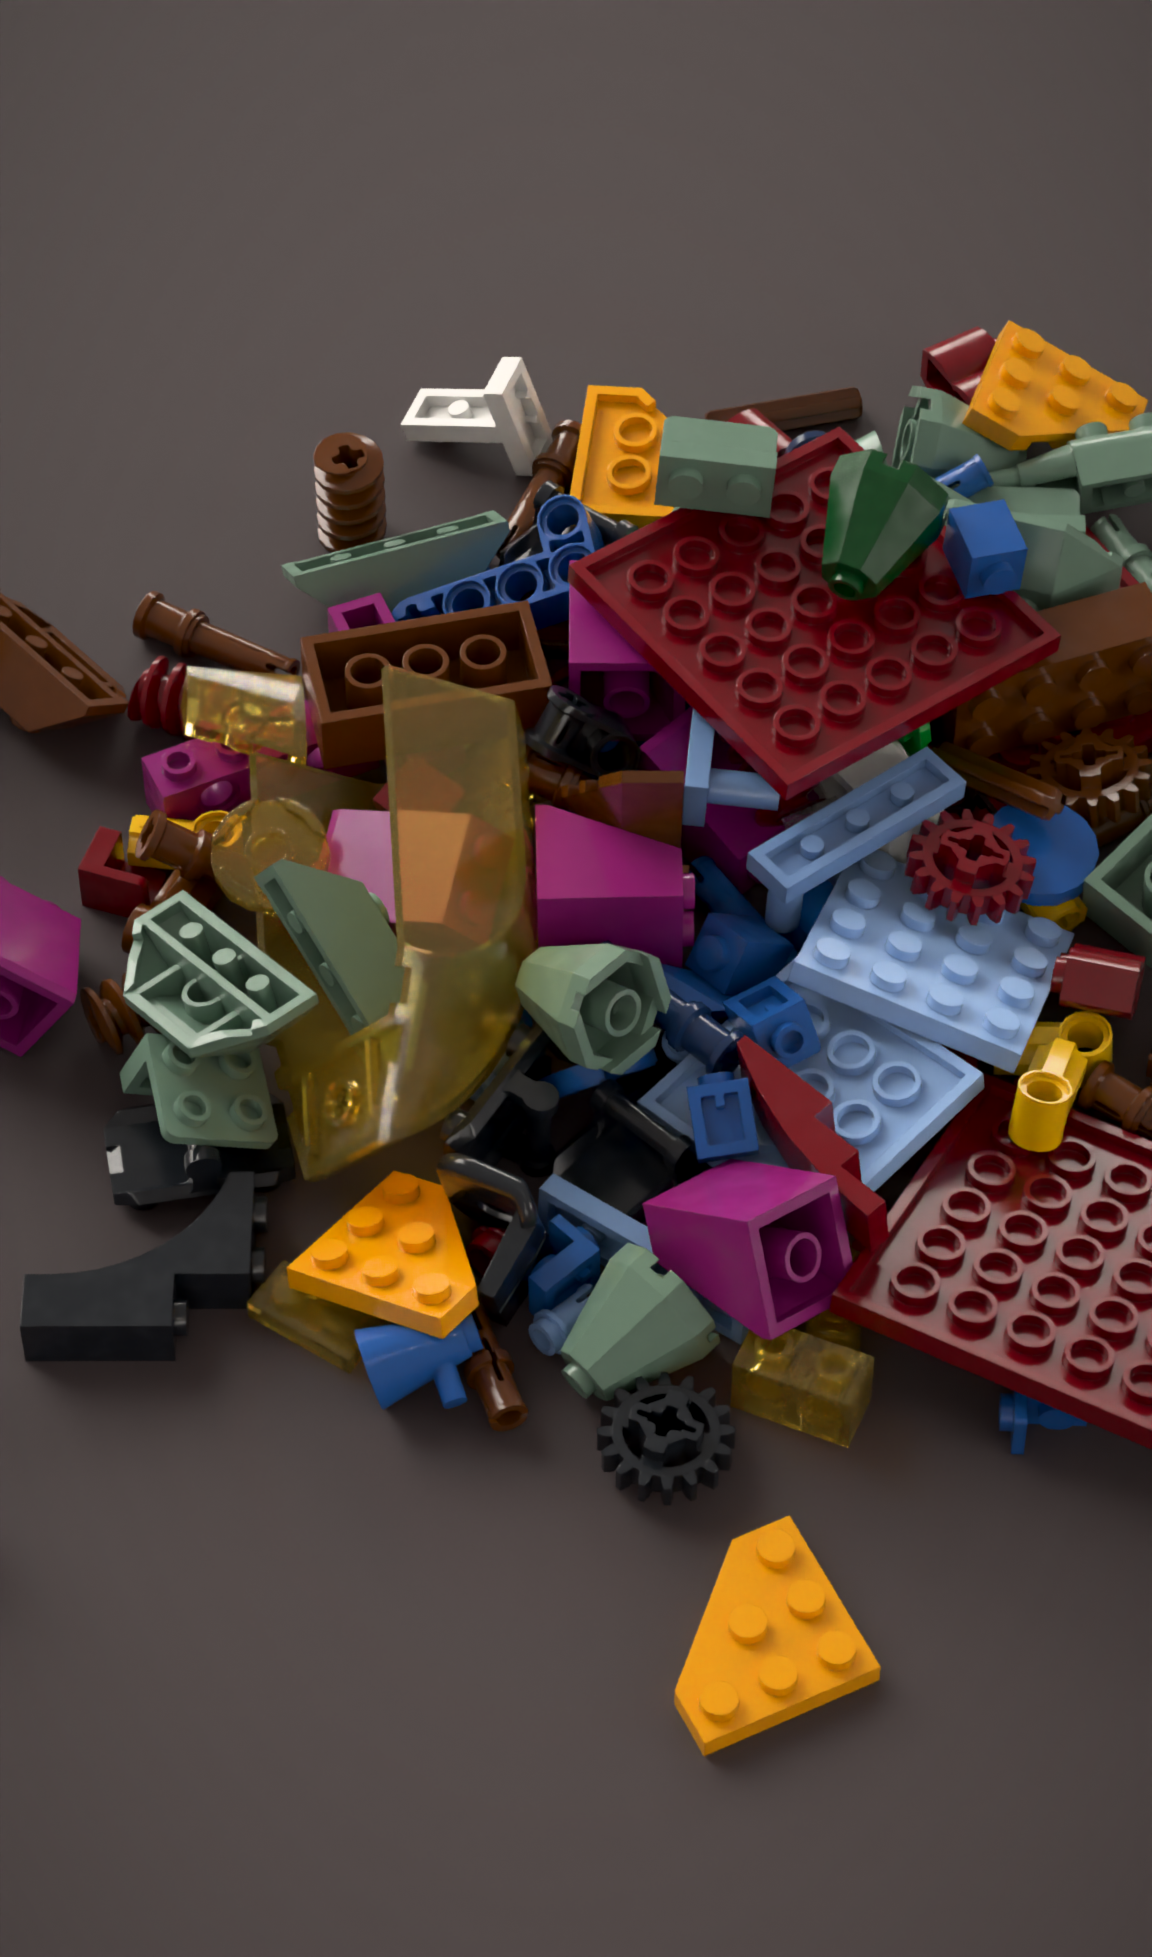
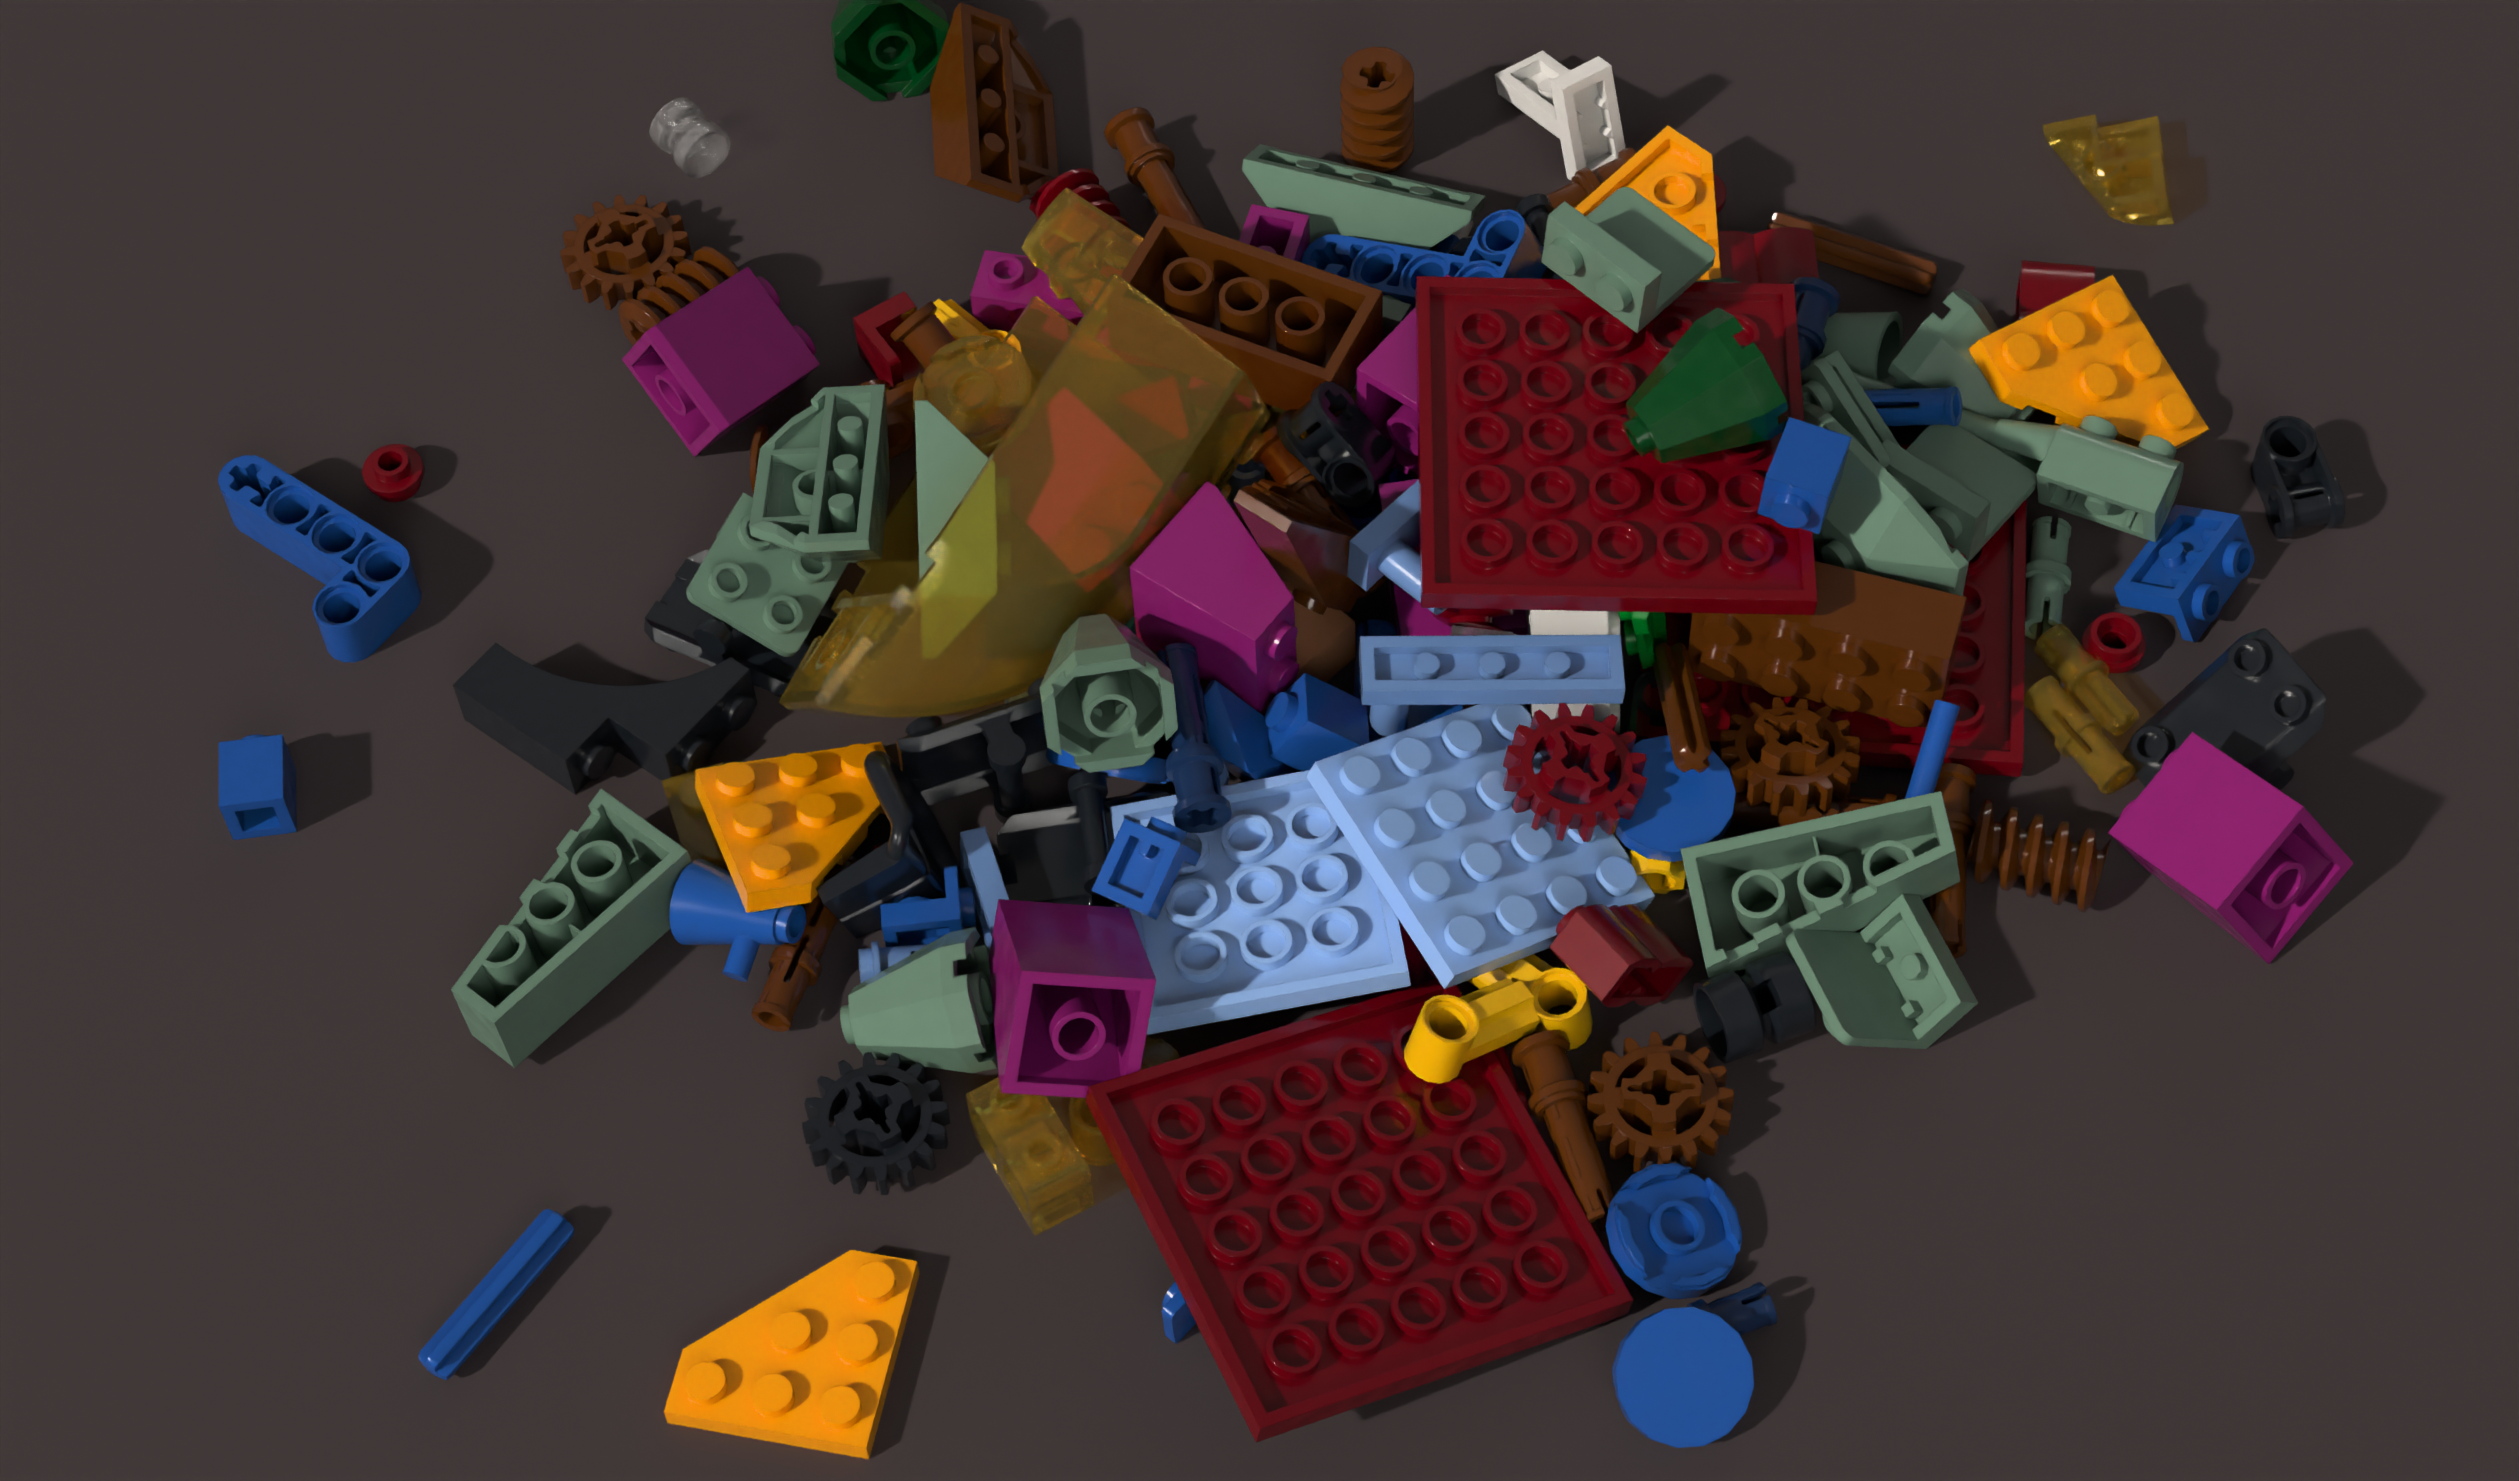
camera: 40 degrees right, 5 degrees up
(299, 1431) = (574, 930): none -> sand green wedge
(487, 1750) = (496, 1294): none -> blue axle
(775, 1020) = (1265, 810): blue bracket -> none
(805, 1135) = (1191, 925): dark red slope -> none
(916, 252) = (2117, 165): none -> clear yellow slope

